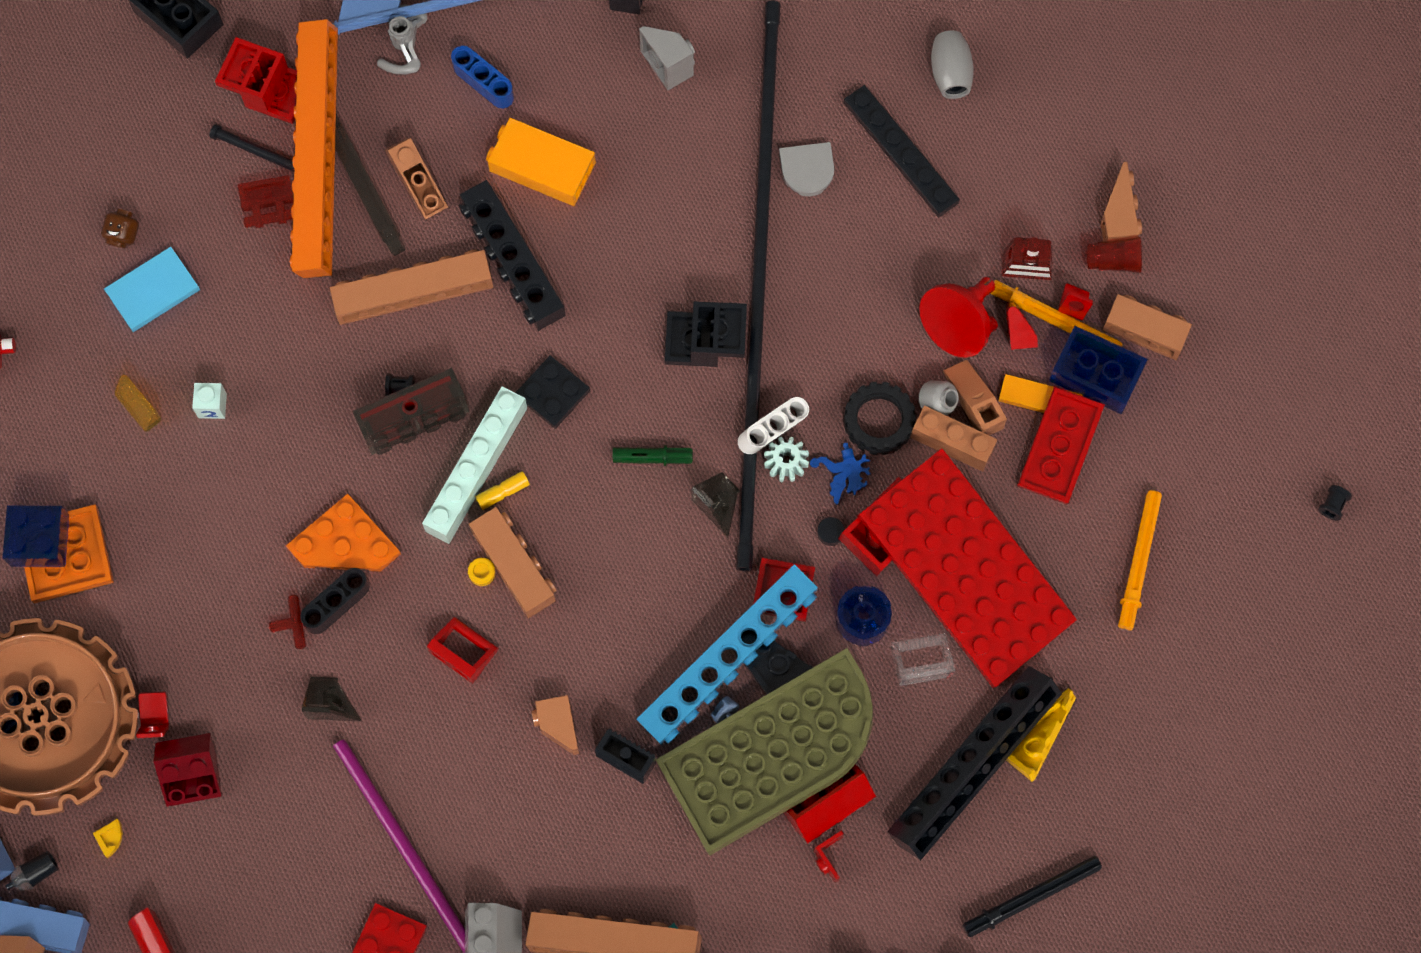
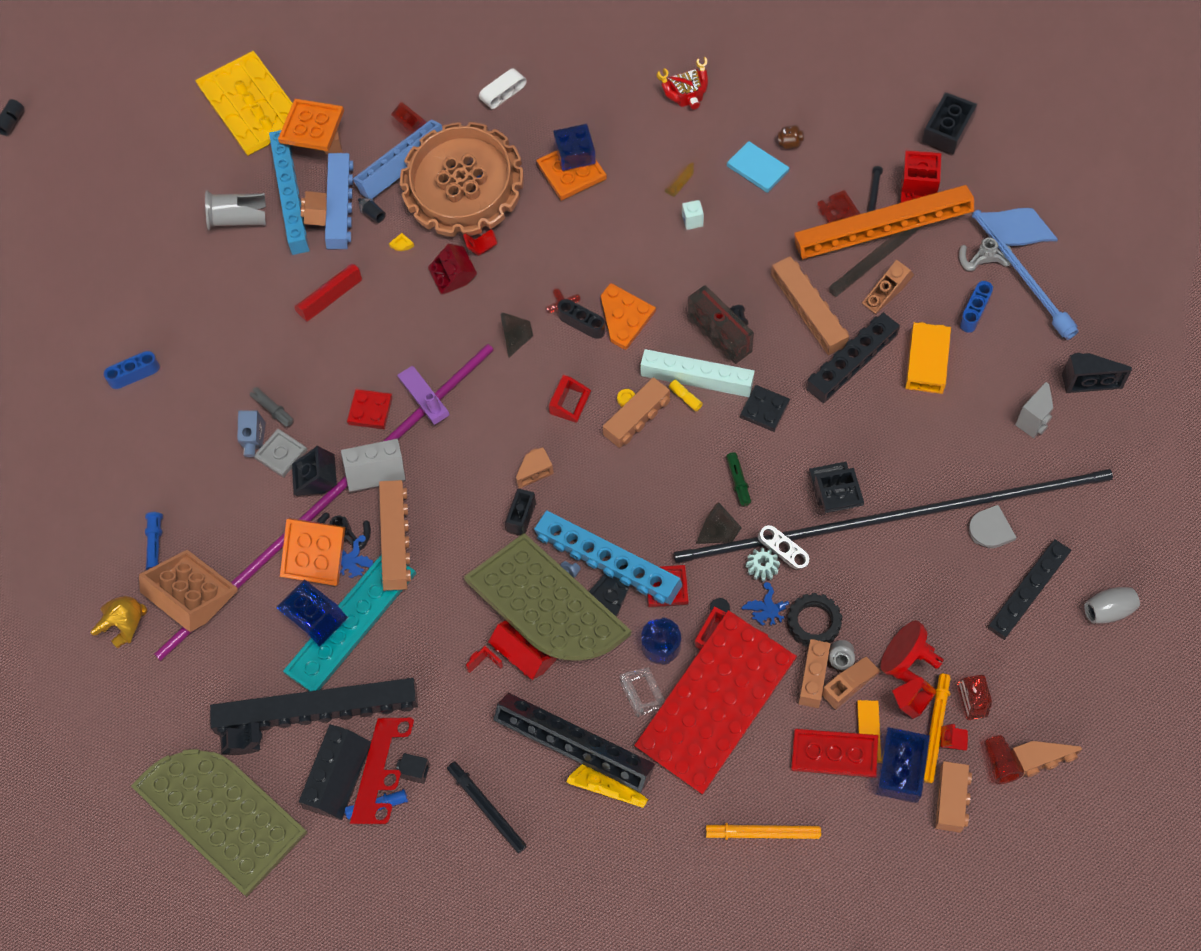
camera: 80 degrees right, 10 degrees down
(394, 855) = (423, 395): none -> medium lavender piece

